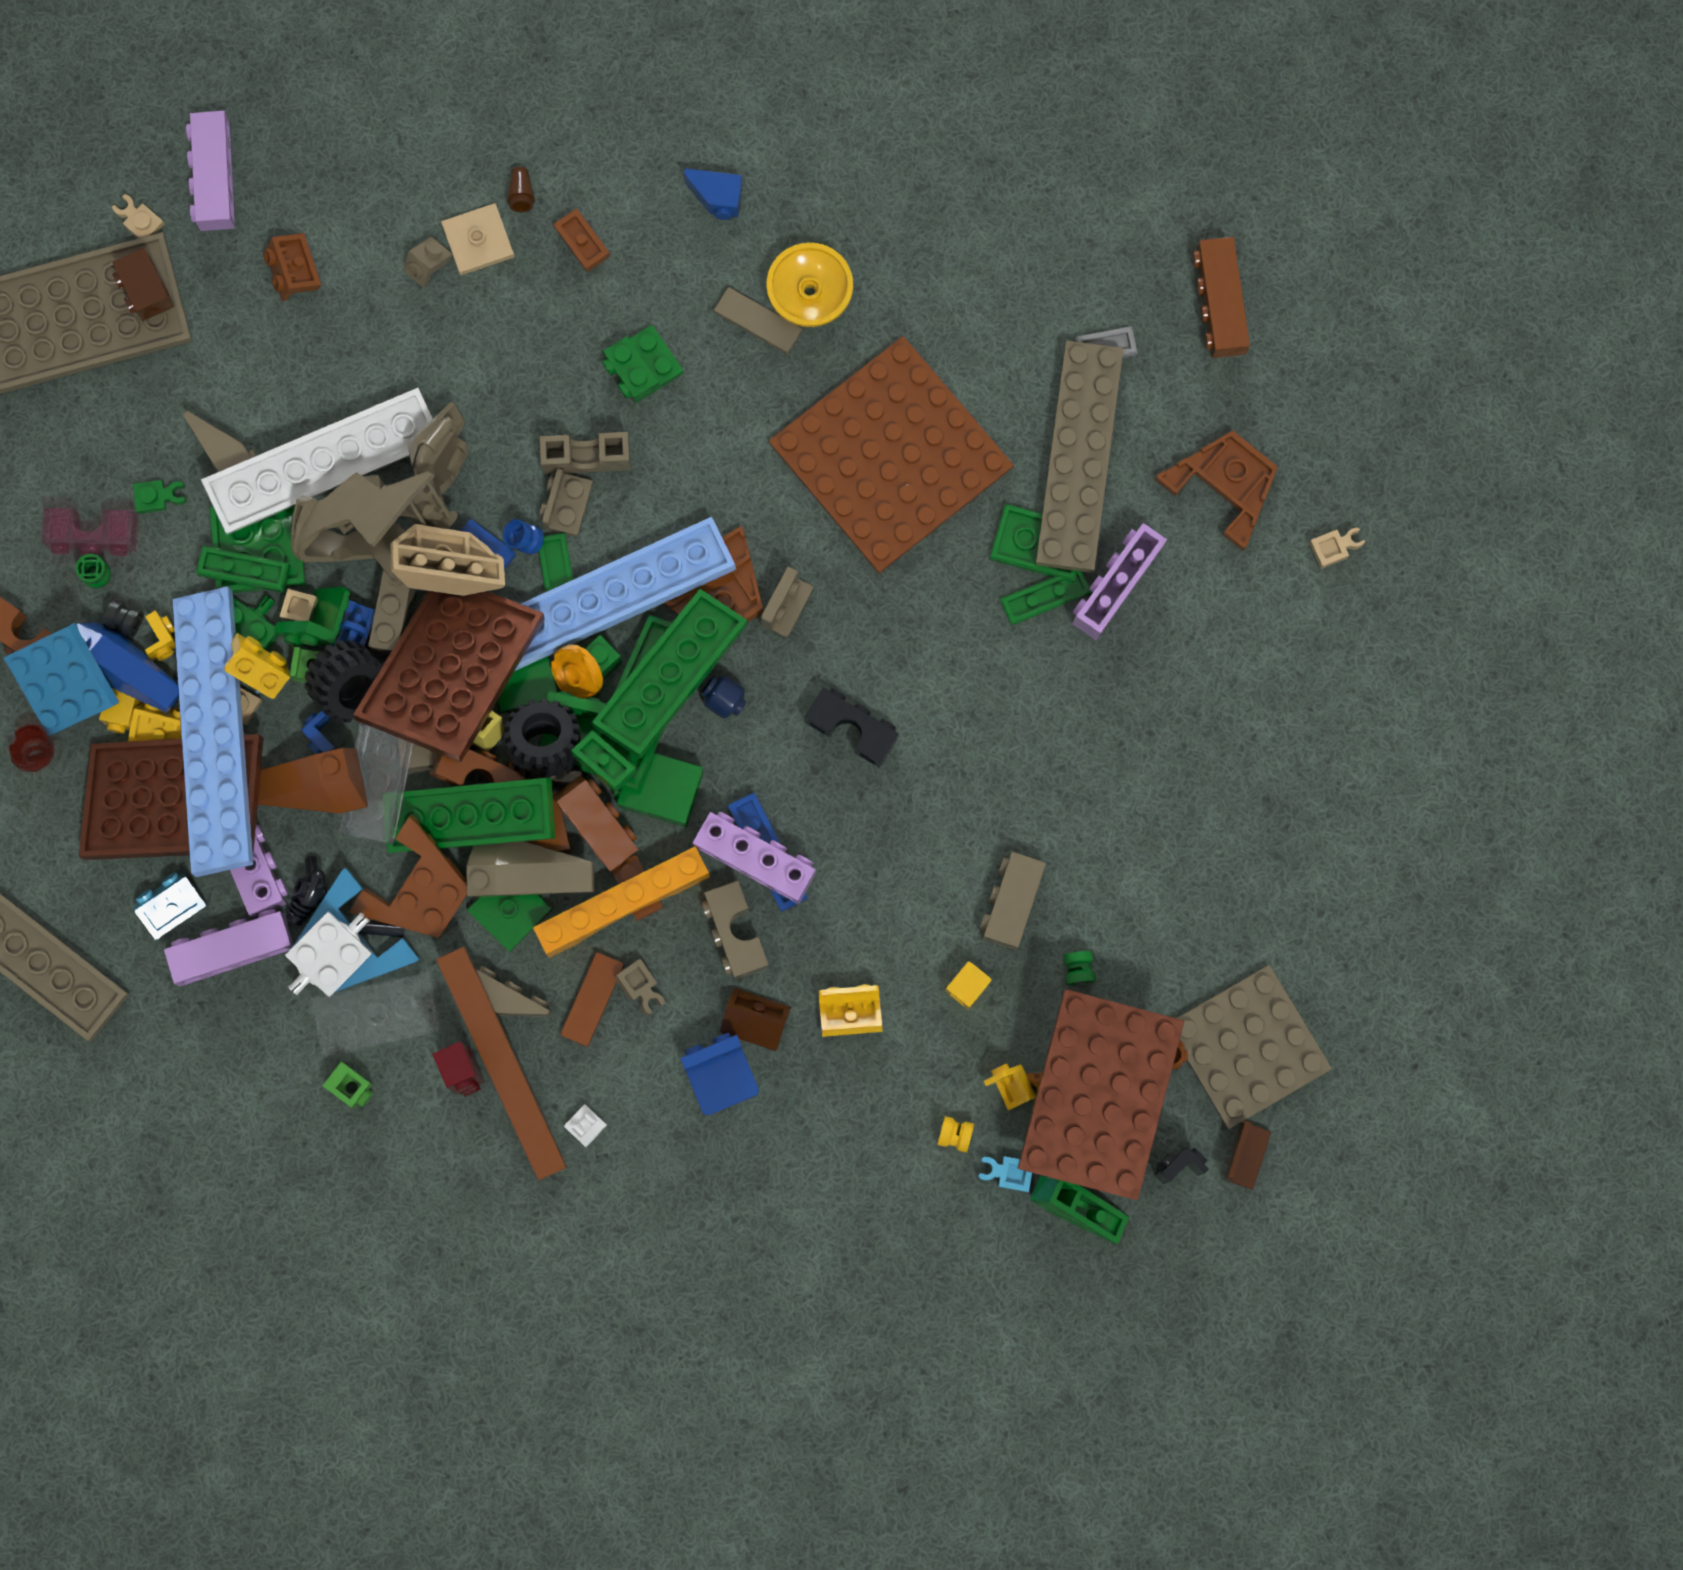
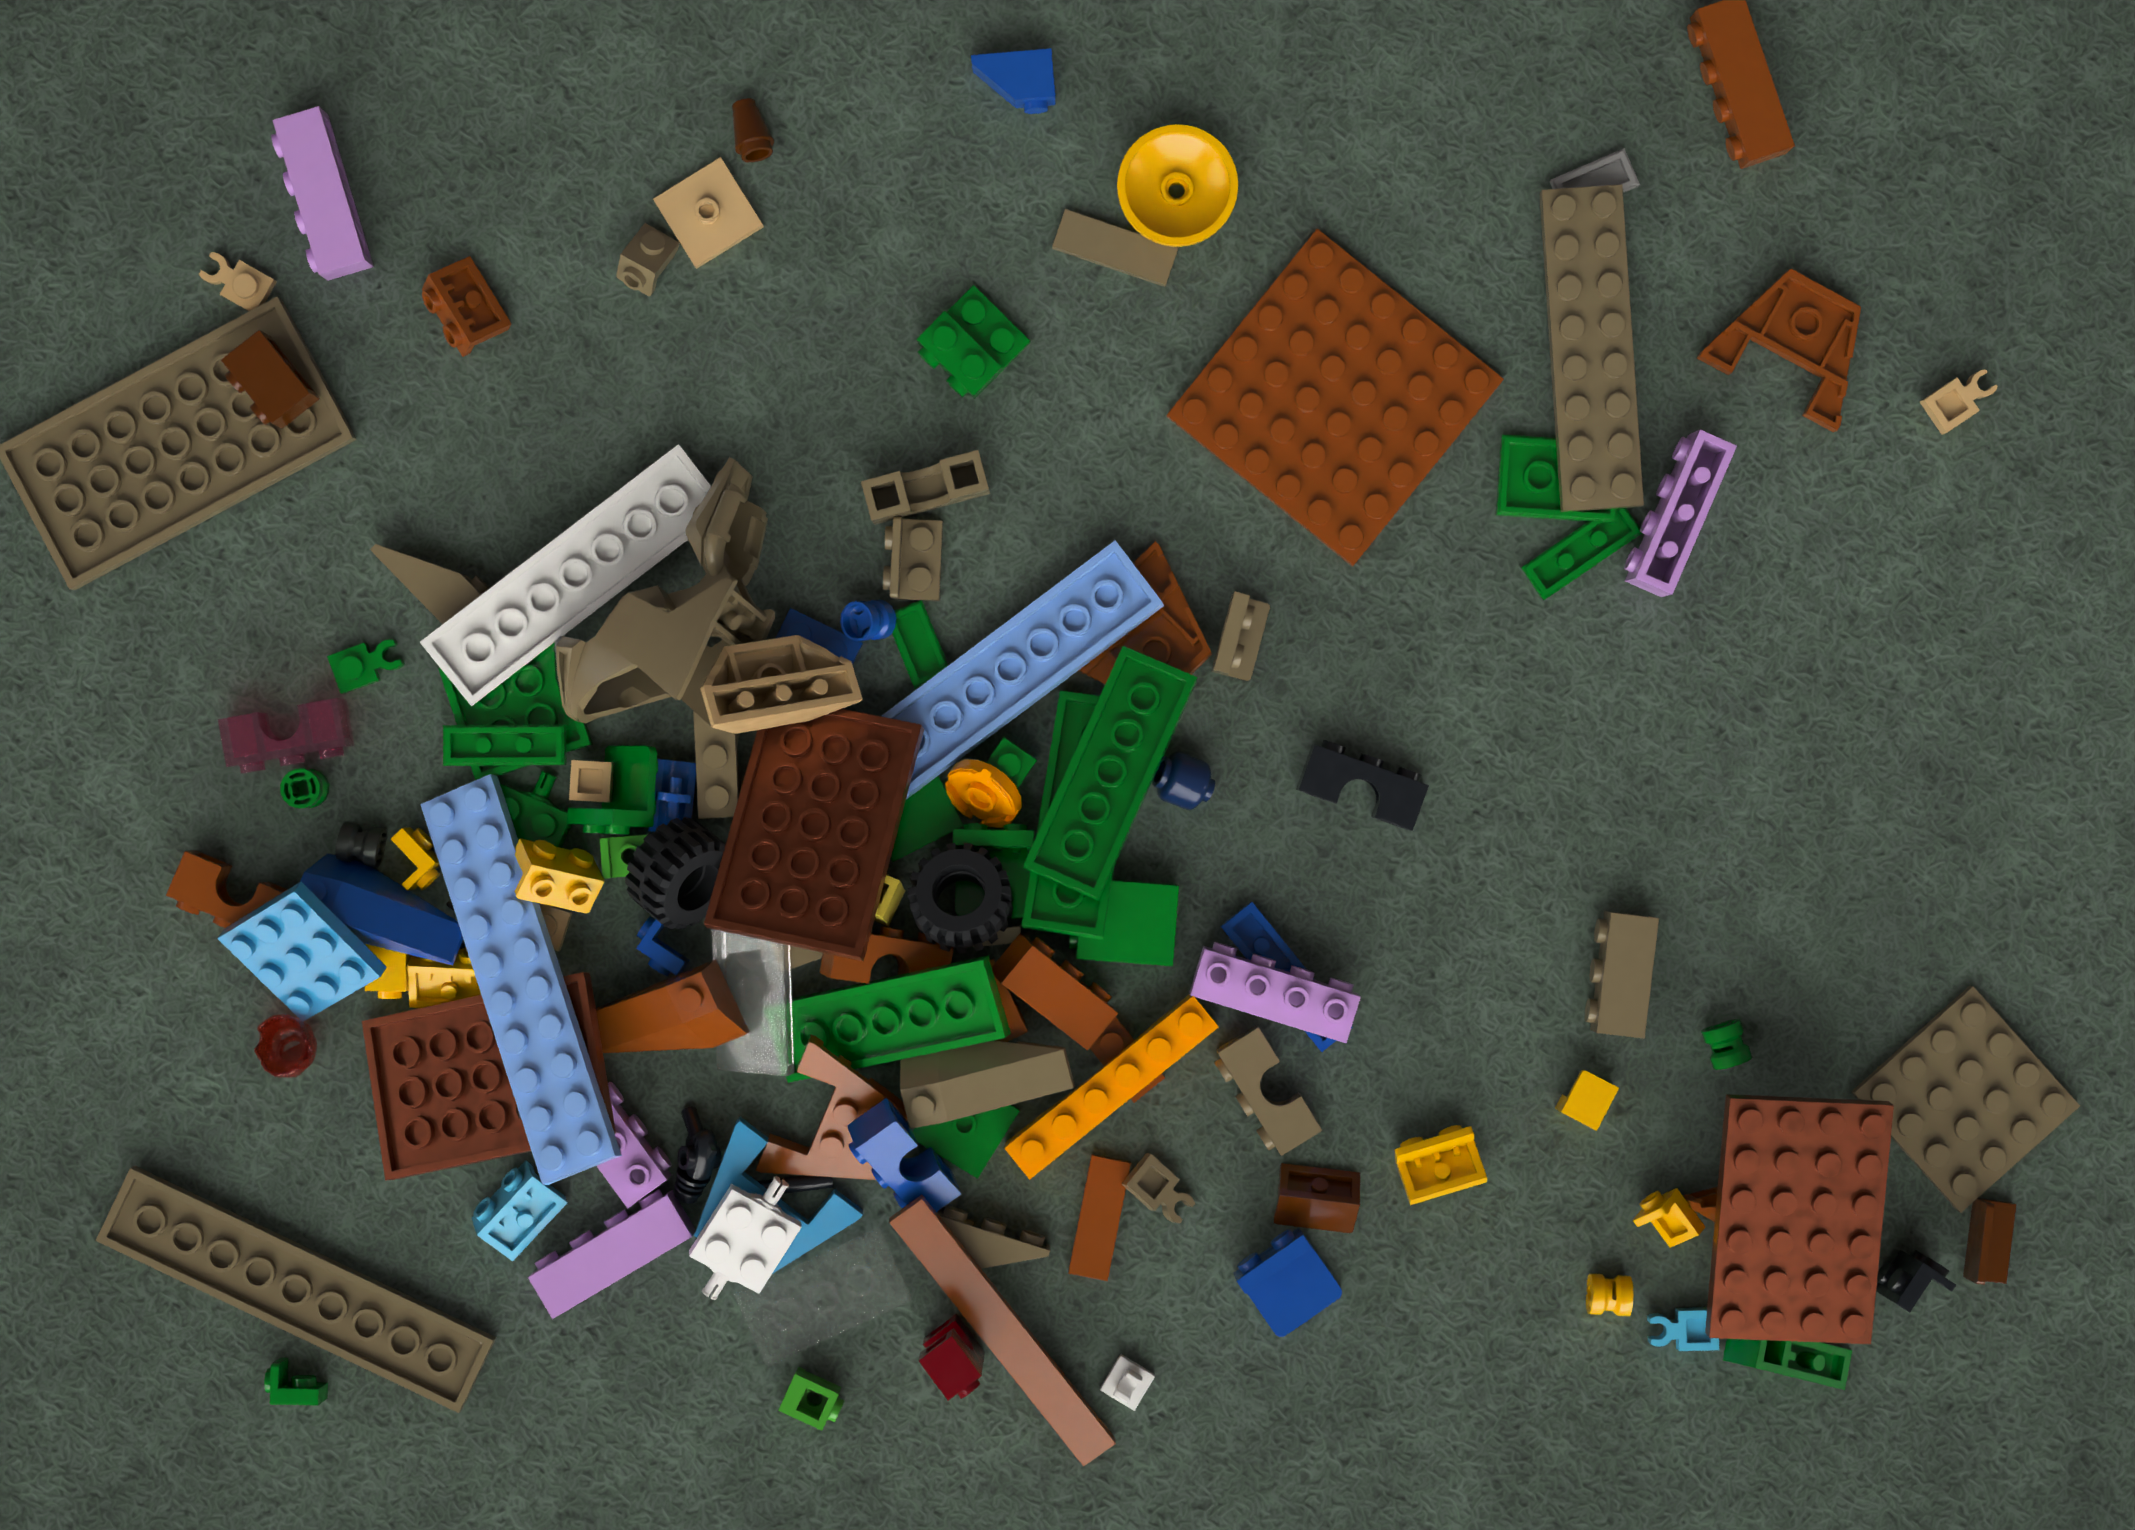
camera: 15 degrees left, 10 degrees up
(446, 897) = (883, 1140): none -> blue arch
(581, 240) = (850, 185): dark orange plate -> none
(603, 761) = (1051, 916): green plate -> none

